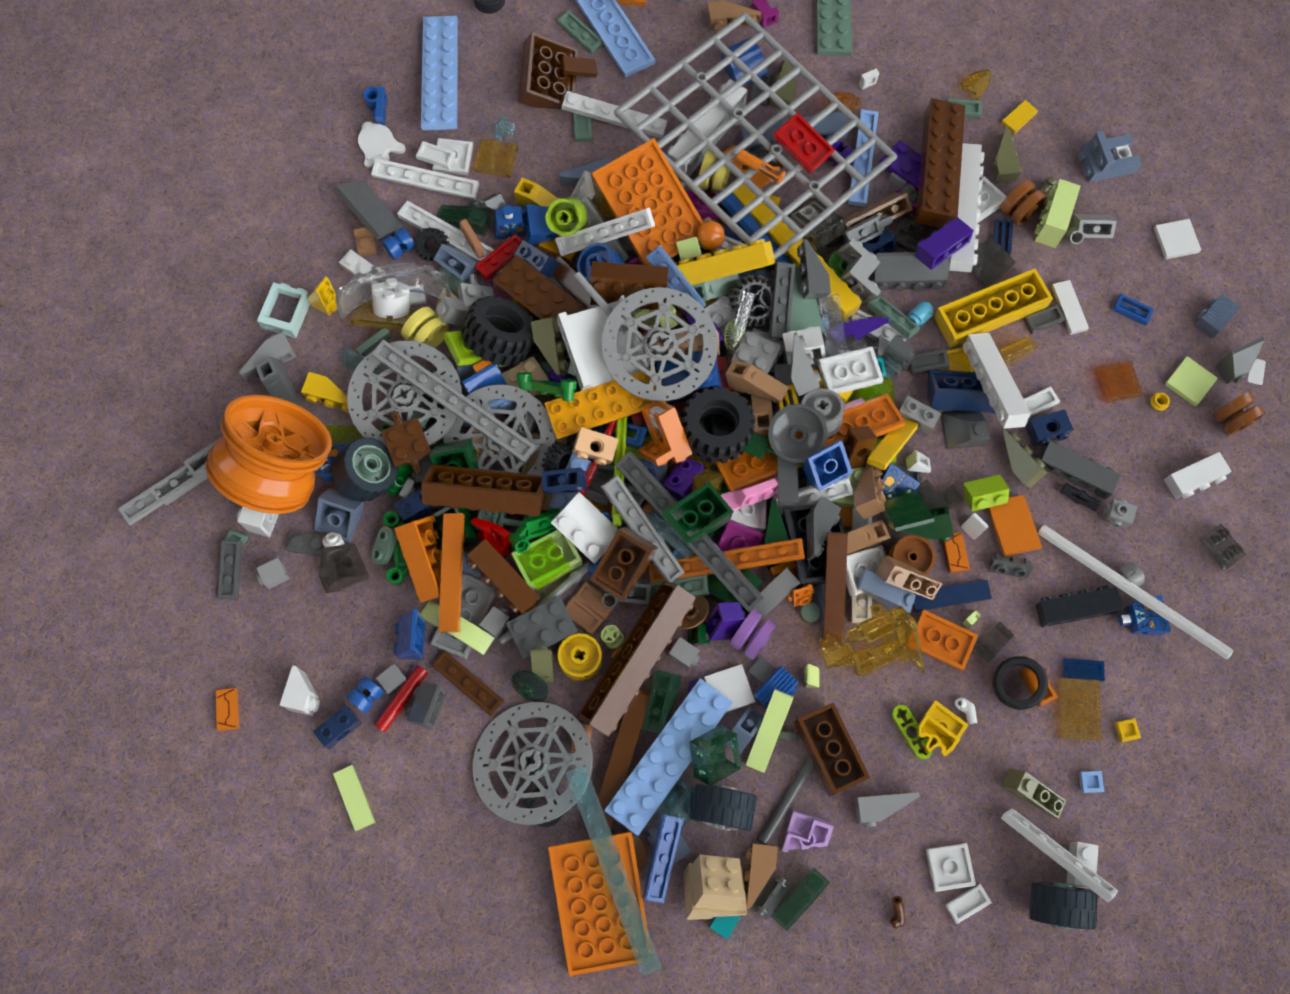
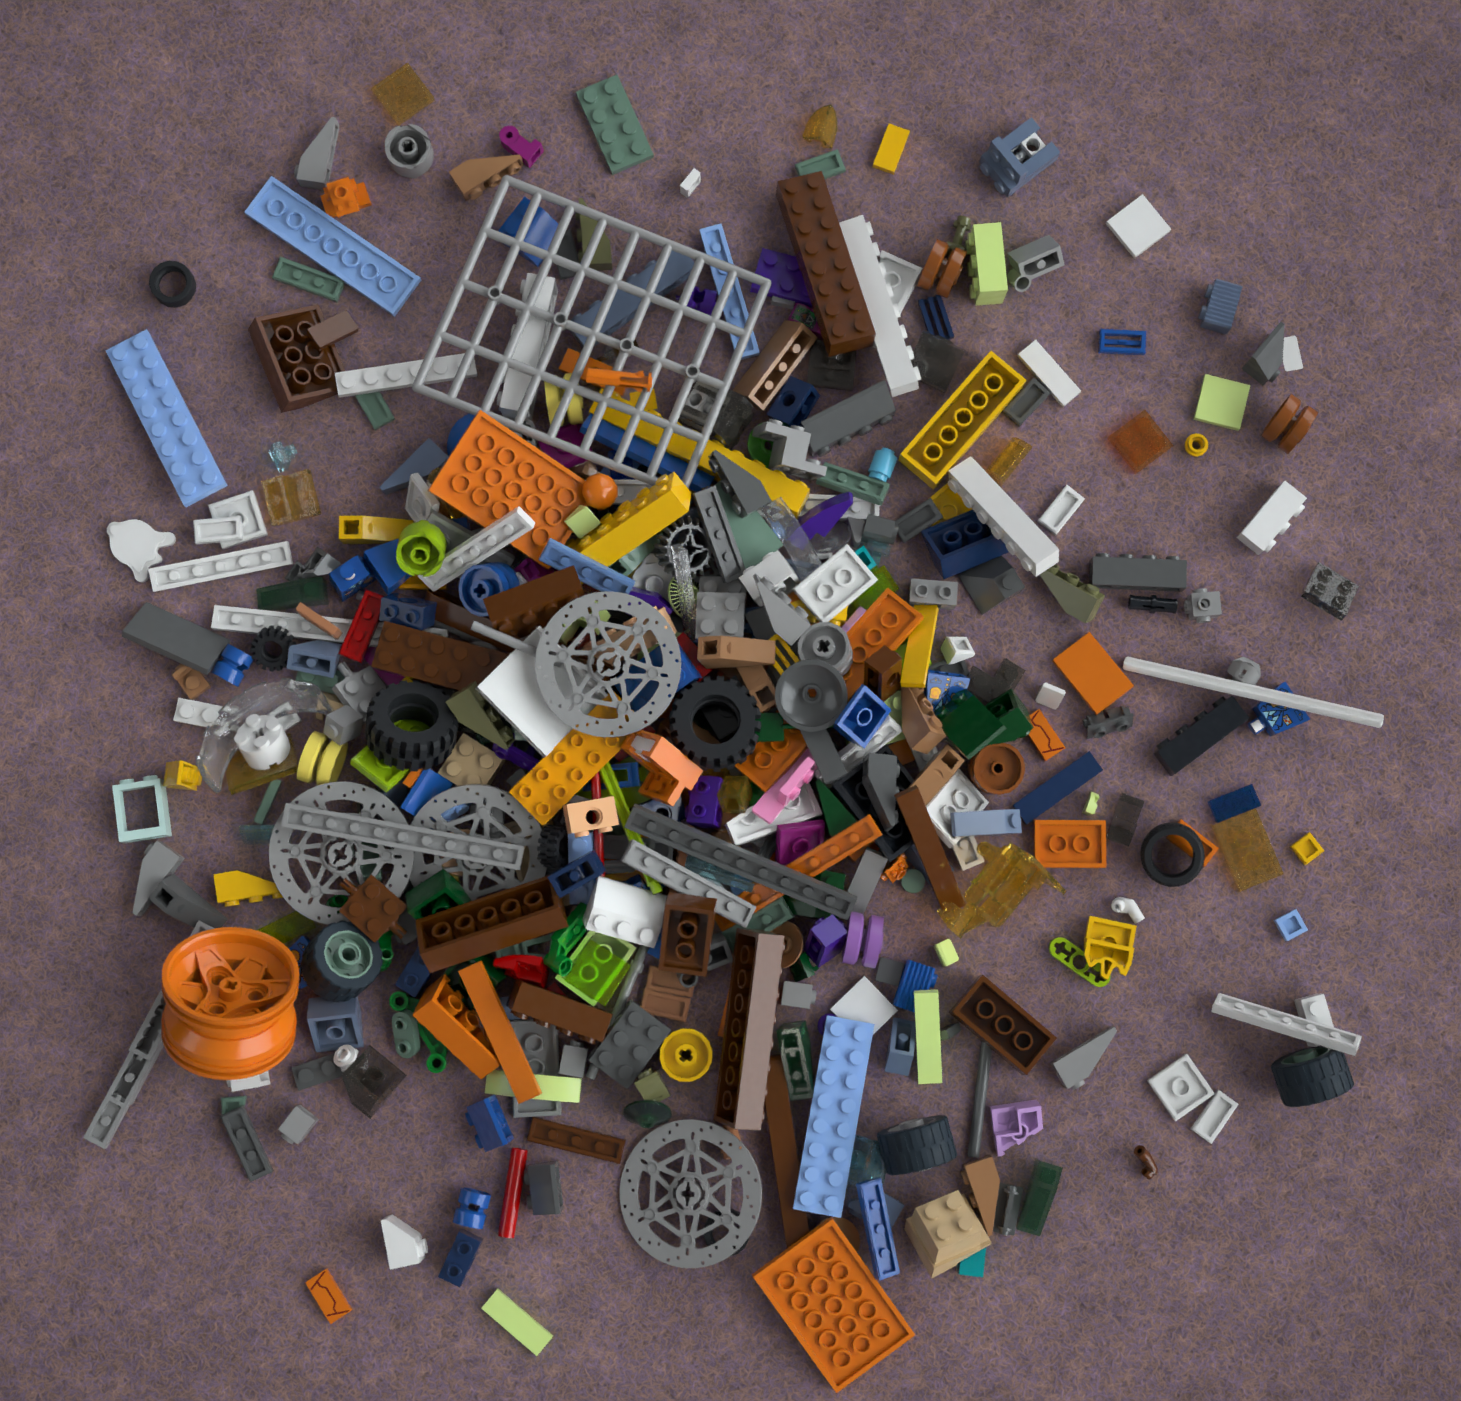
camera: 25 degrees left, 10 degrees up
(377, 102) = (114, 494): blue plate -> none
(391, 679) = (491, 1177): light grey slope -> none
(407, 489) = (400, 957): light grey plate -> none
(564, 389) = (500, 768): green plate -> none
(608, 634) = (705, 1017): yellowish green wheel -> none
(614, 870) = (832, 1266): clear light blue plate -> none
(698, 514) = (743, 843): dark green slope -> none
(709, 755) = (878, 1097): clear green piece -> none
(803, 143) = (655, 322): red tile -> none
(848, 100) = (676, 227): clear orange tile -> none
(868, 228) = (776, 392): dark grey hinge -> none
(907, 578) = (1001, 799): medium nougat slope -> none
(944, 243) = (873, 375): dark purple brick -> none
(985, 492) = (1046, 651): lime brick -> none
(1005, 165) = (899, 221): olive slope -> none
(1033, 792) = (1235, 966): olive slope -> none
(1057, 421) = (1094, 527): dark blue brick -> none

